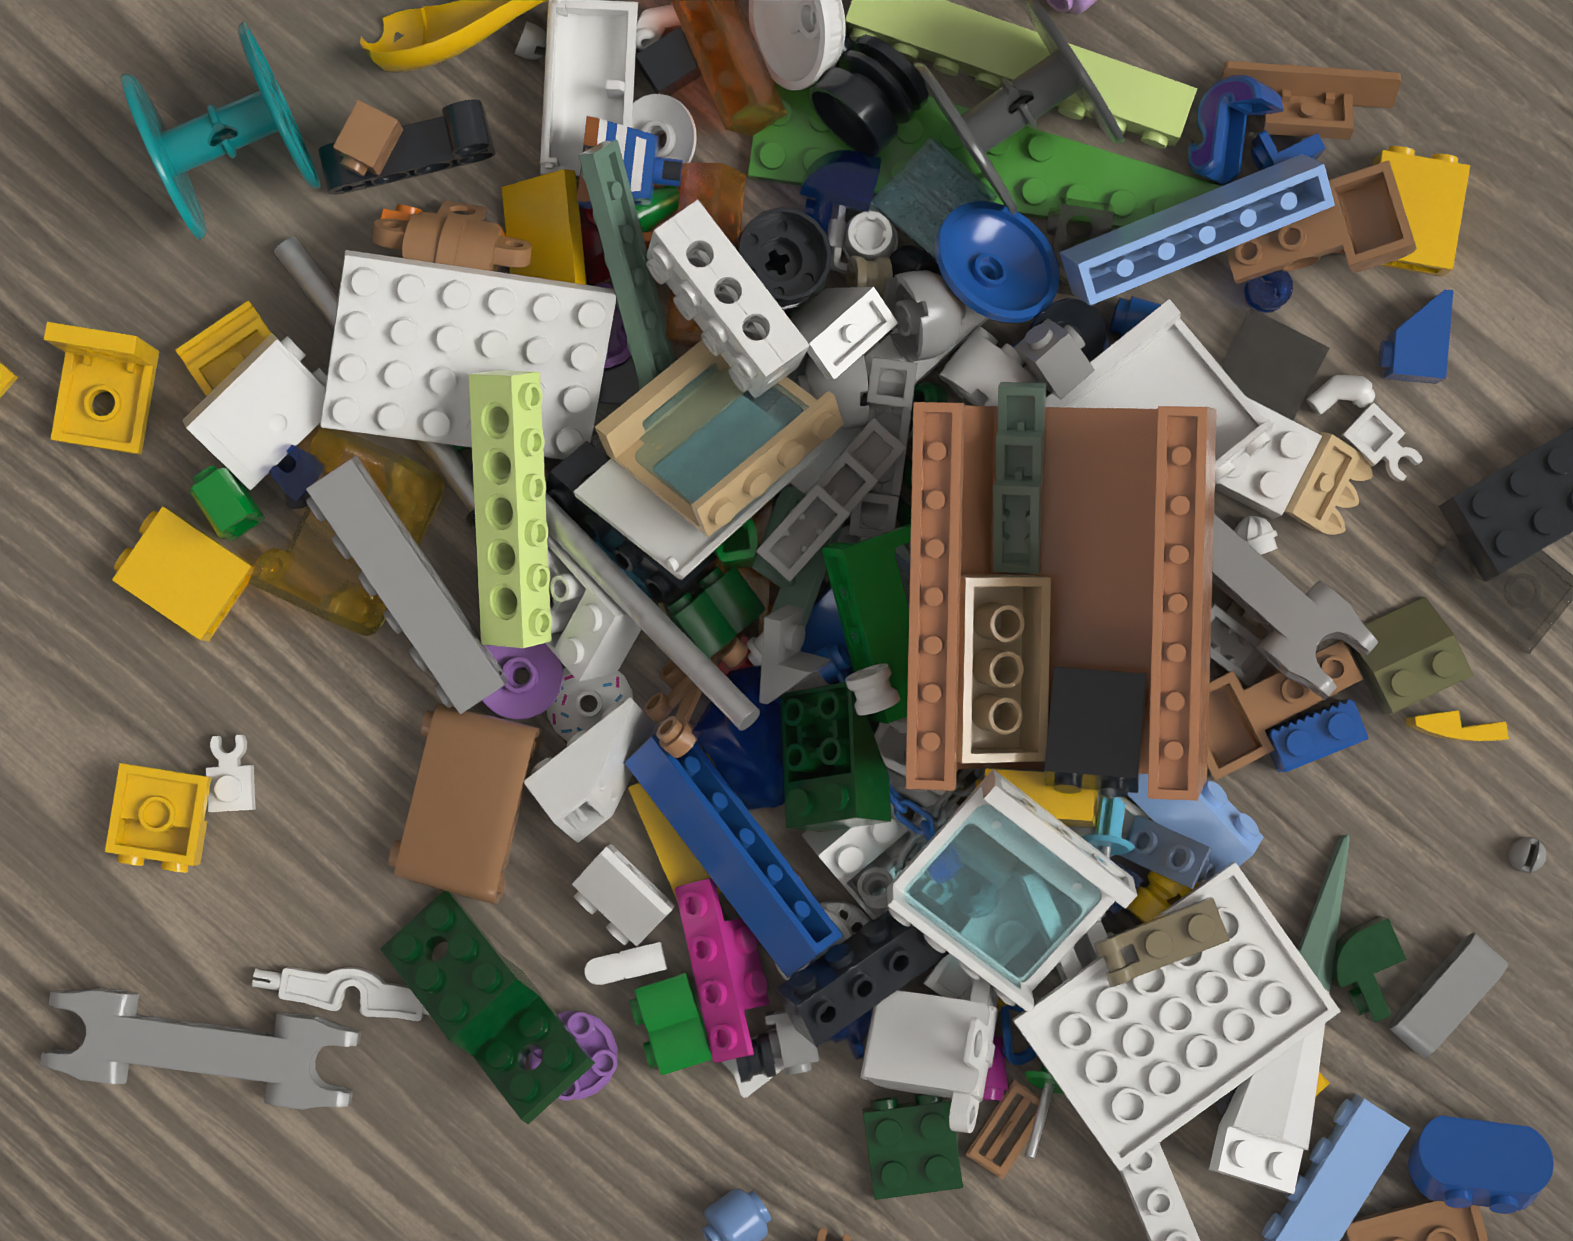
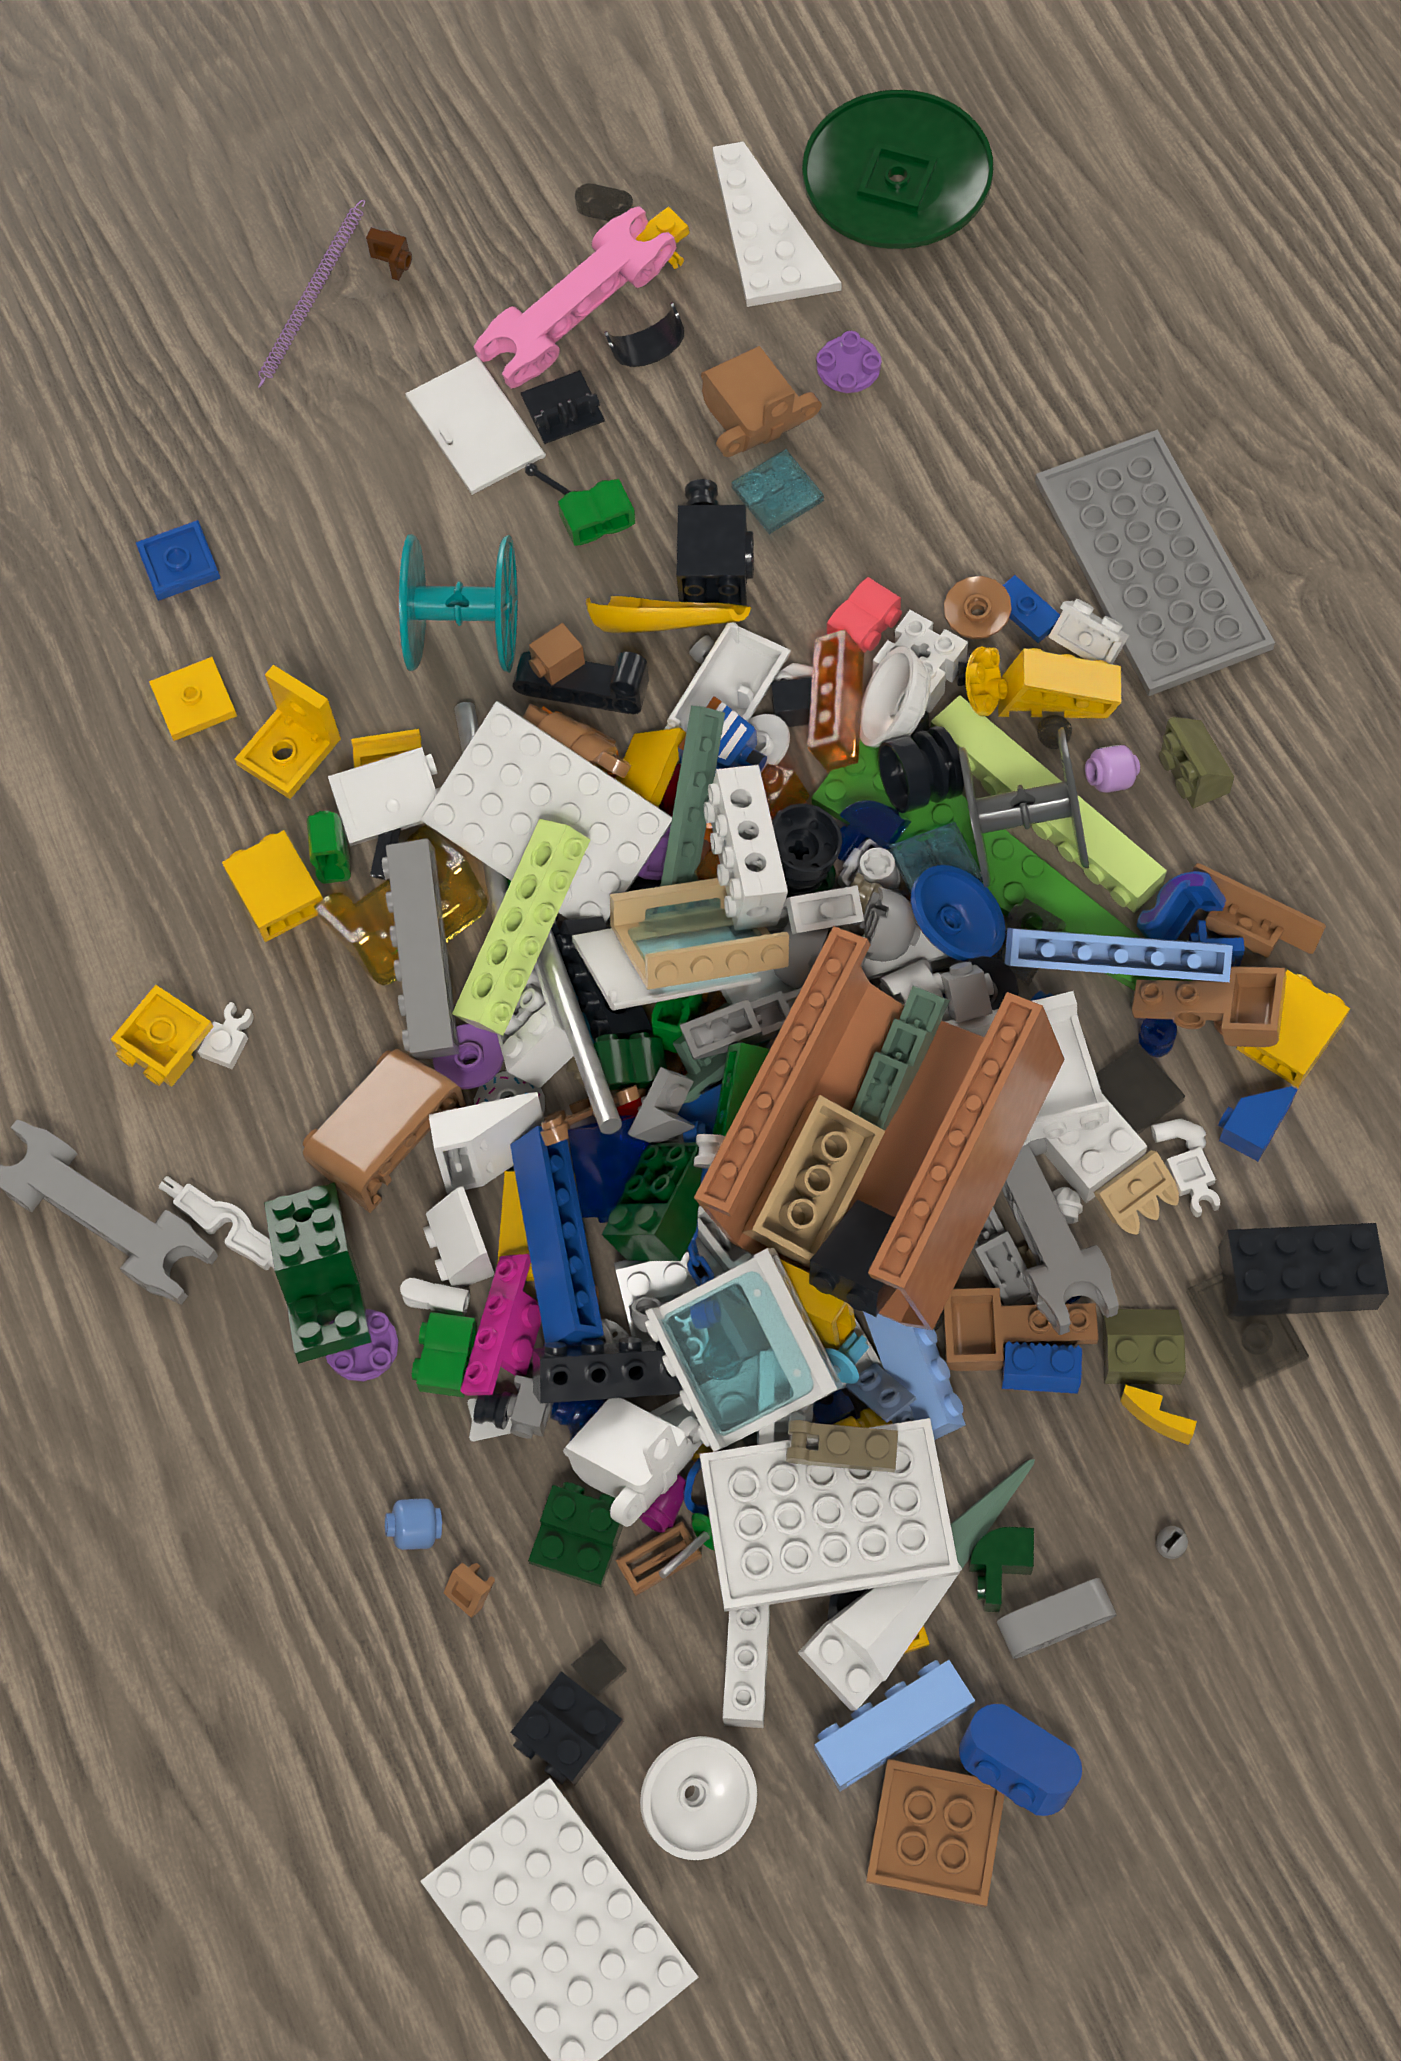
camera: 35 degrees right, 20 degrees down
(305, 474) = (379, 846): clear blue tile -> none

